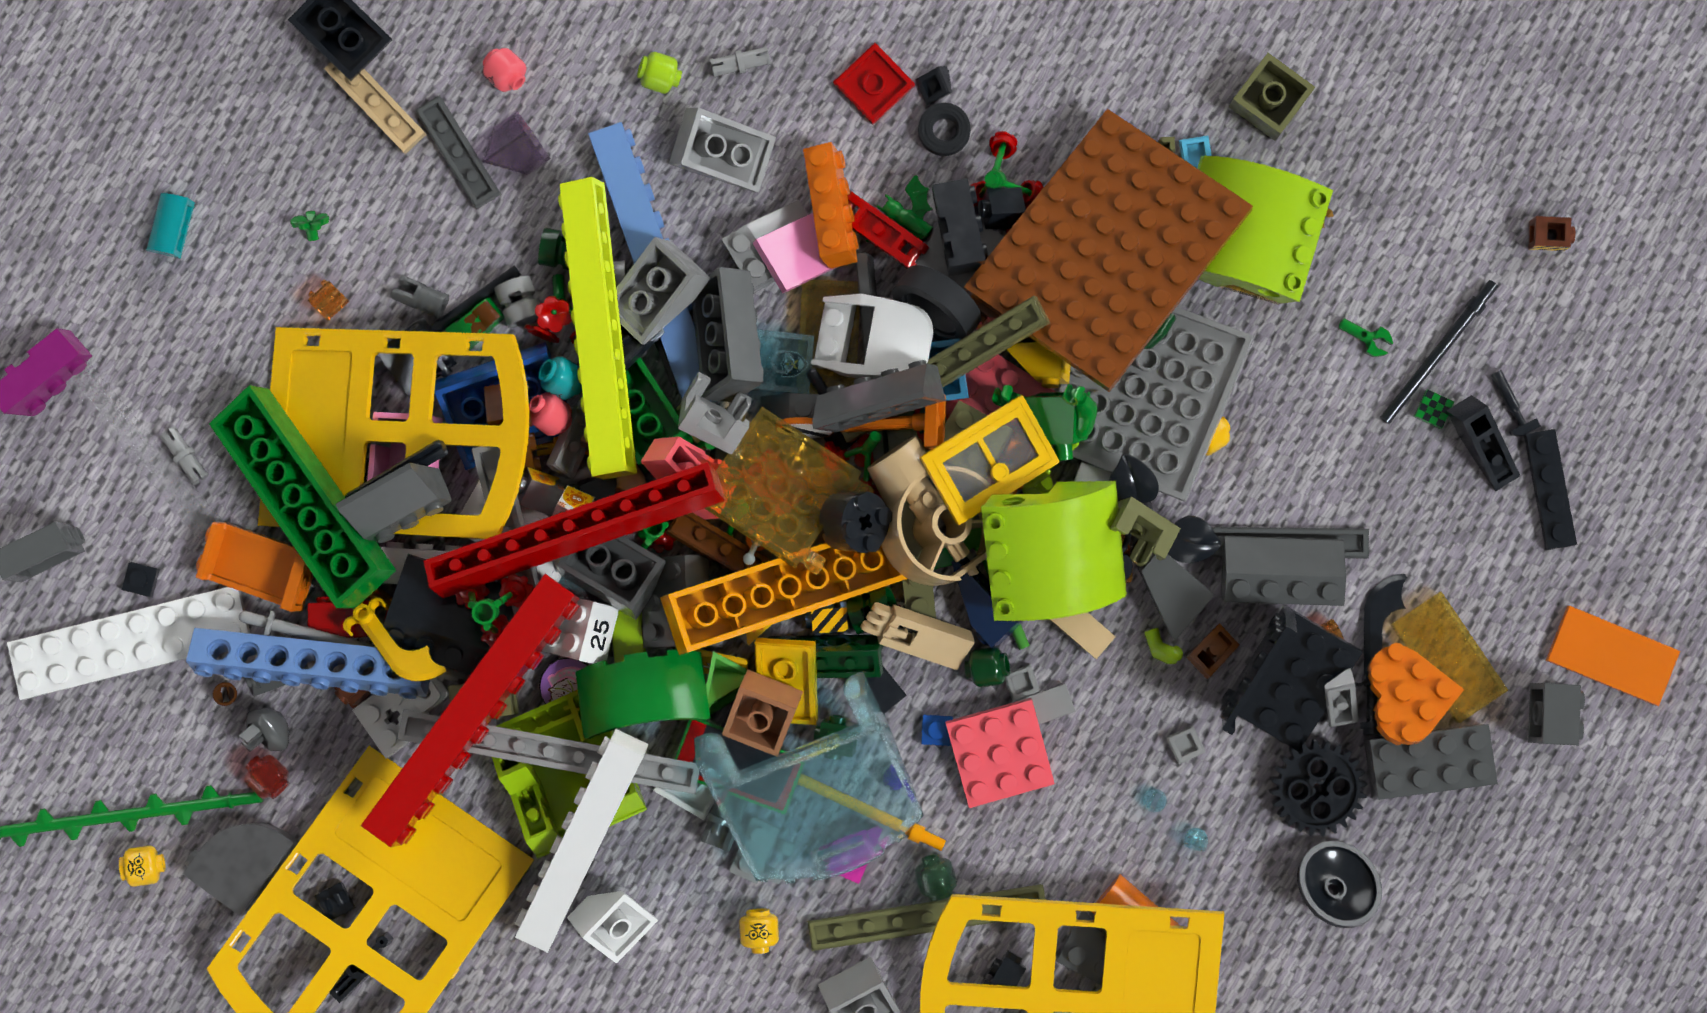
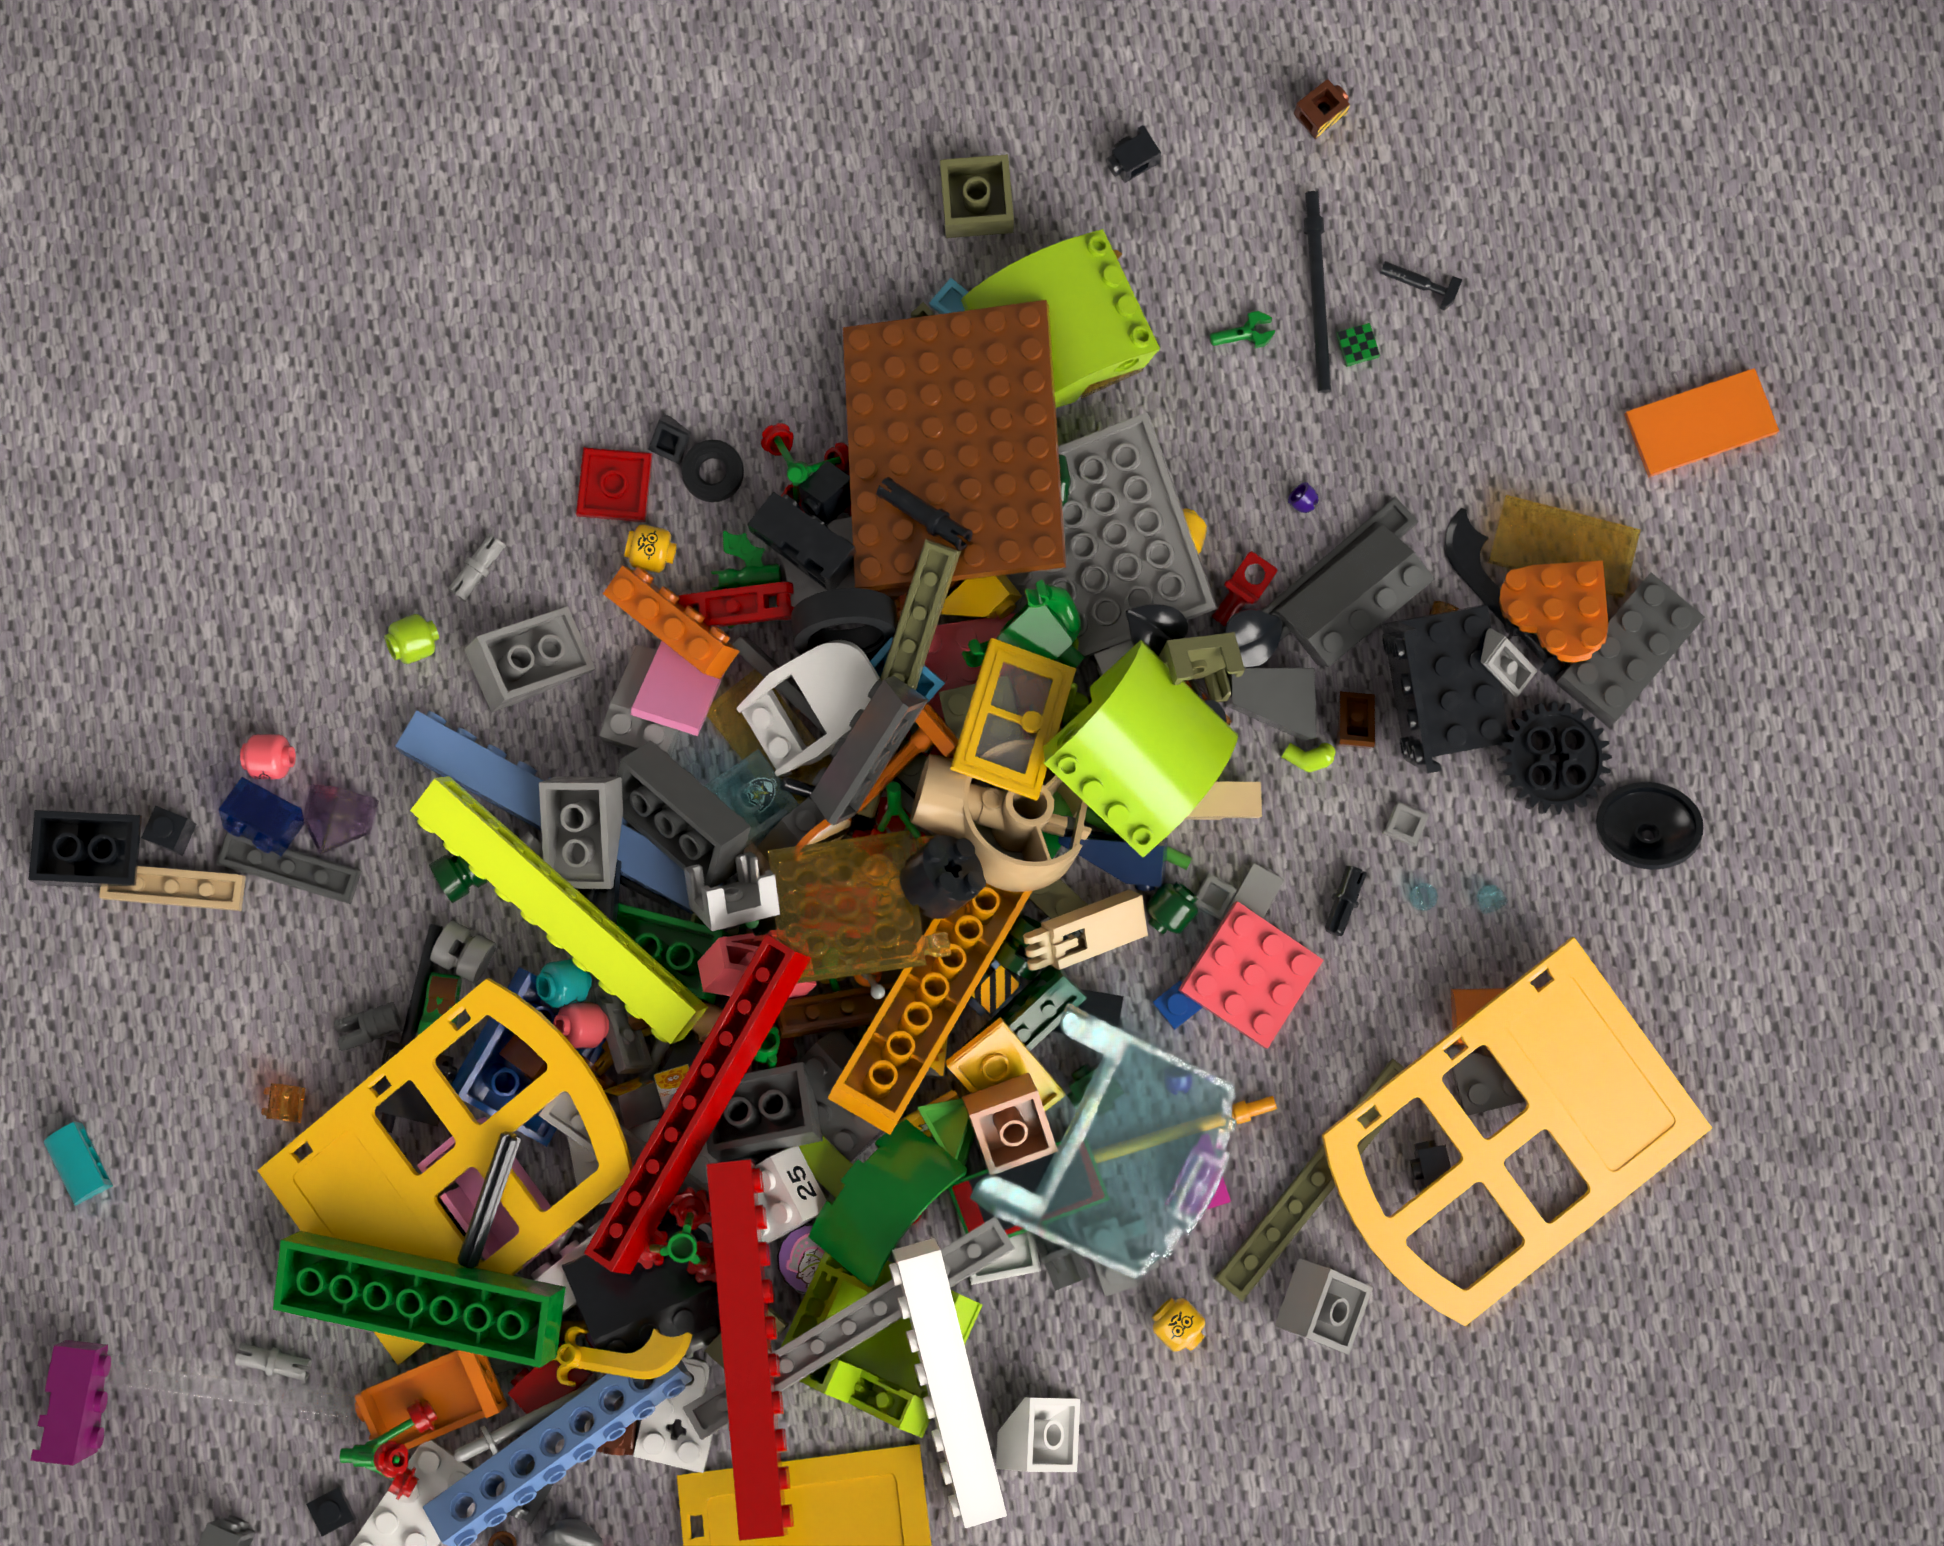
camera: 45 degrees left, 5 degrees down
(198, 581) = (392, 1458): none -> red plant
(310, 223) = (208, 1048): green plant -> none
(396, 502) = (512, 1223): dark grey slope -> none
(402, 63) = (168, 830): none -> black brick
(467, 105) = (261, 817): none -> clear blue brick
(553, 313) = (507, 932): red plant -> none
(859, 145) = (650, 548): none -> yellow head
(935, 877) = (1293, 1136): clear green head -> none
(1051, 289) = (936, 521): none -> black pin
(1102, 758) = (1345, 900): none -> black axle
(1214, 503) = (1241, 590): none -> red bracket
(1307, 478) = (1303, 498): none -> dark purple hinge
(1398, 158) = (1134, 155): none -> black brick
(1484, 441) = (1425, 334): black slope -> none
(1550, 489) = (1519, 327): black plate -> none
(1555, 714) = (1699, 513): dark grey brick -> none

